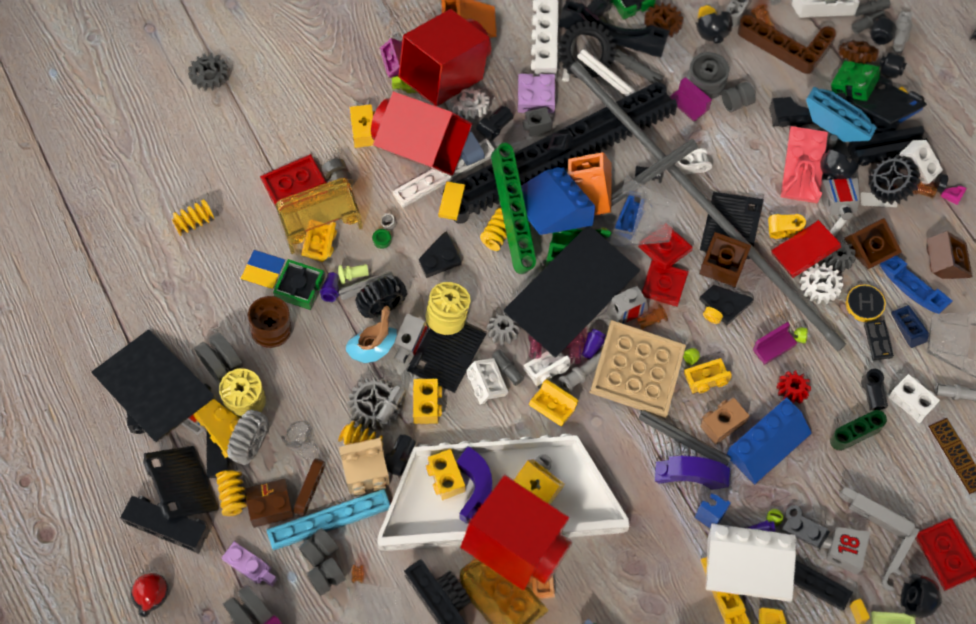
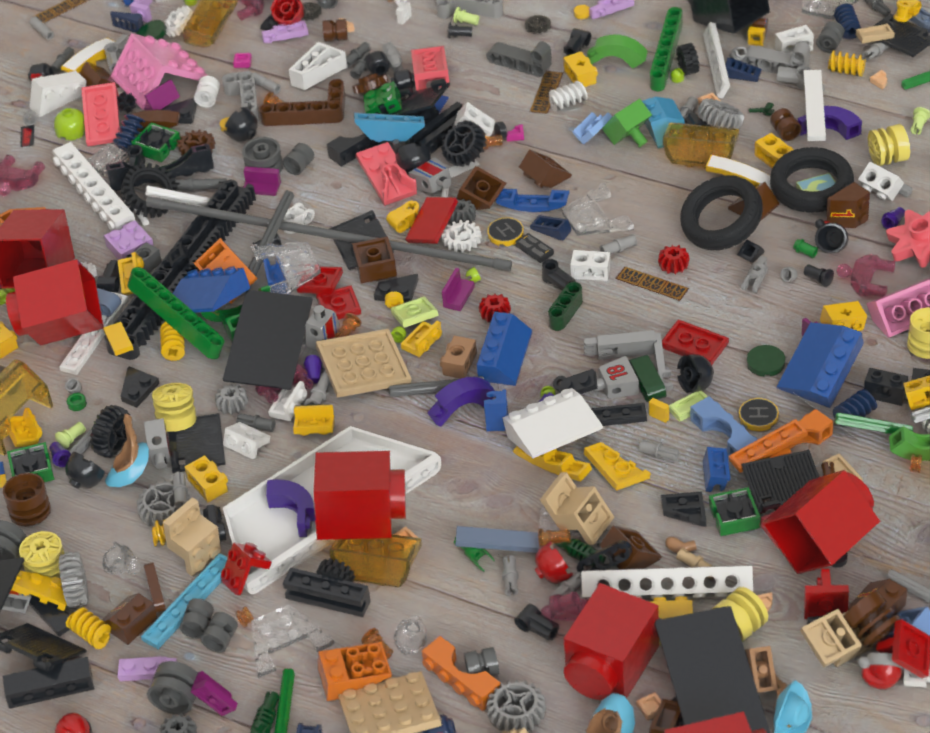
camera: 30 degrees left, 20 degrees down
(333, 322) = (82, 472): none -> black cylinder
(389, 520) = (238, 565): none -> red bracket
(449, 473) = (264, 511): yellow brick -> none
(513, 131) = (125, 267): none -> yellow bracket
(721, 341) = (414, 311): none -> yellowish green tile
(874, 567) = (649, 379): none -> dark green beam
(927, 65) = (429, 65): none -> coral plate

